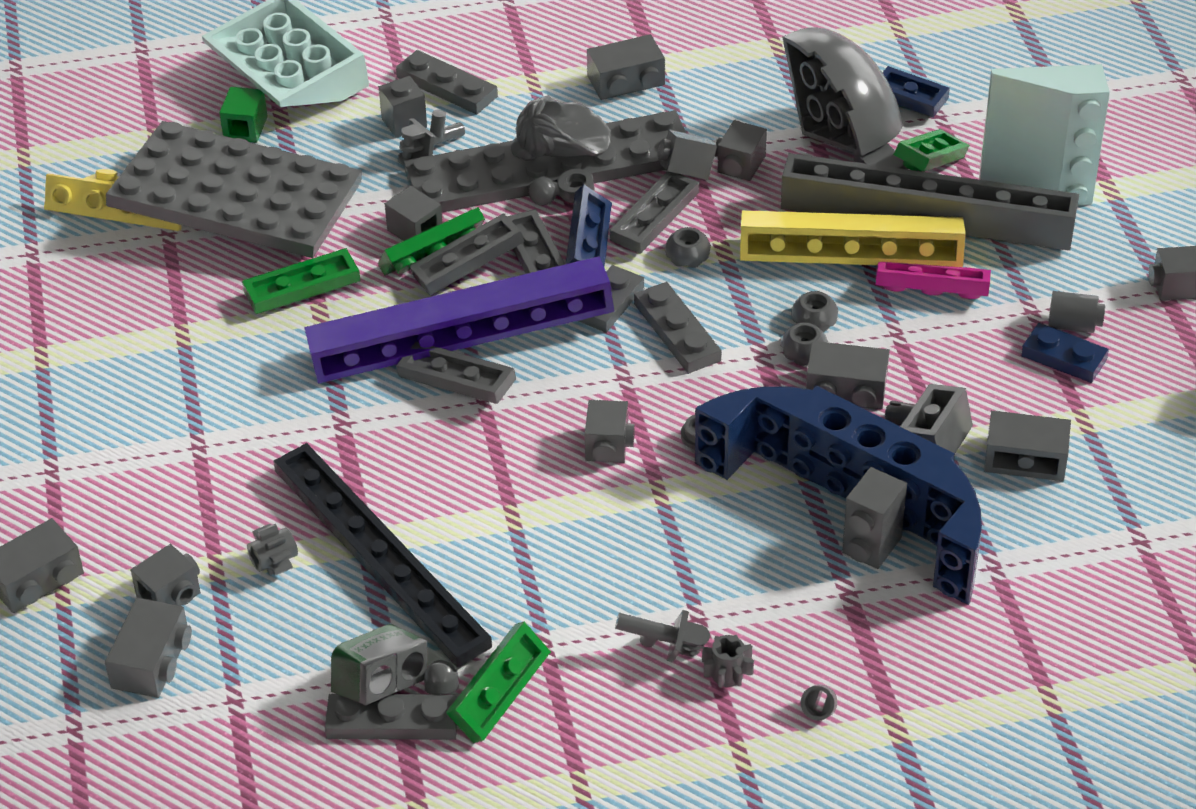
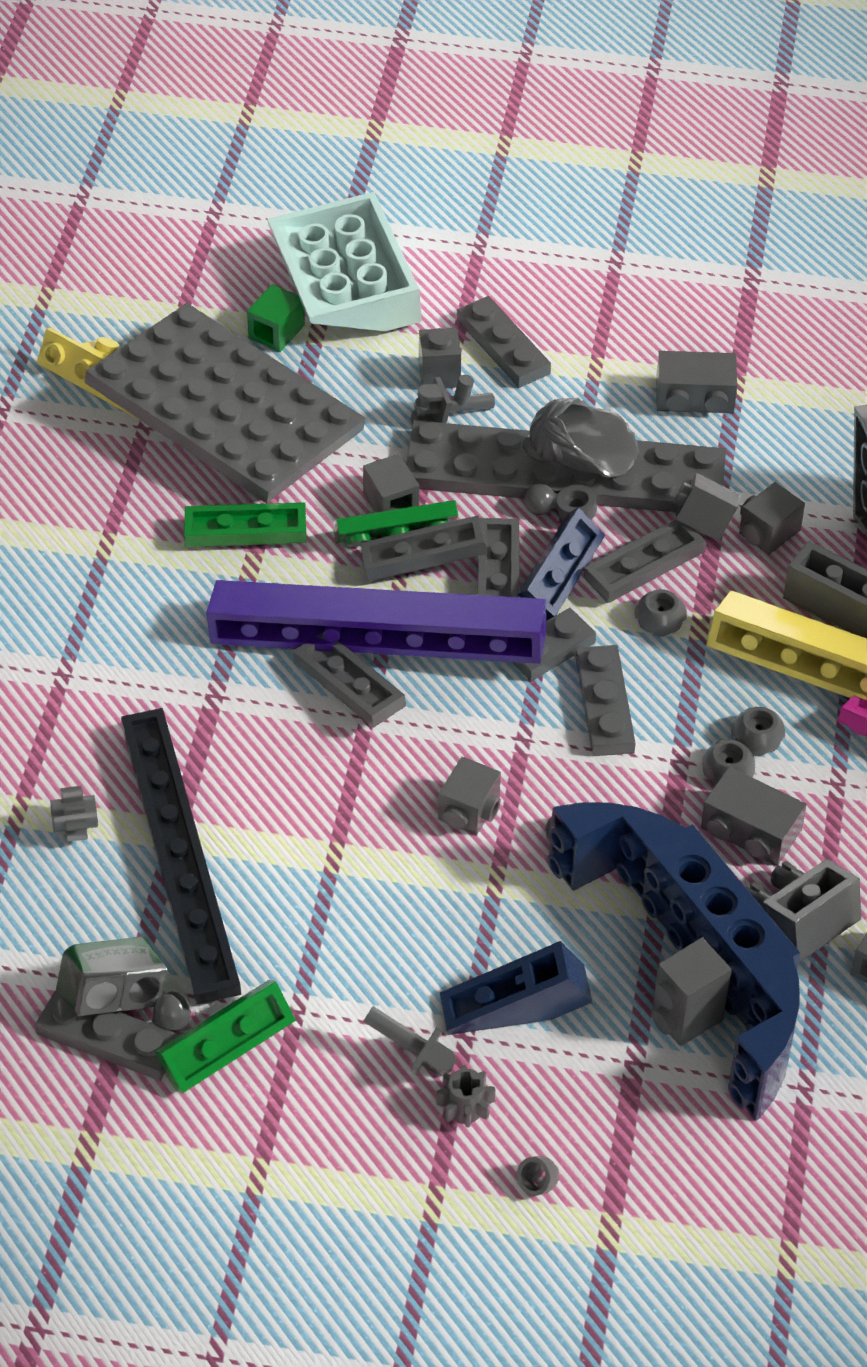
camera: 20 degrees right, 5 degrees up
(729, 567) = (519, 992): none -> dark blue slope

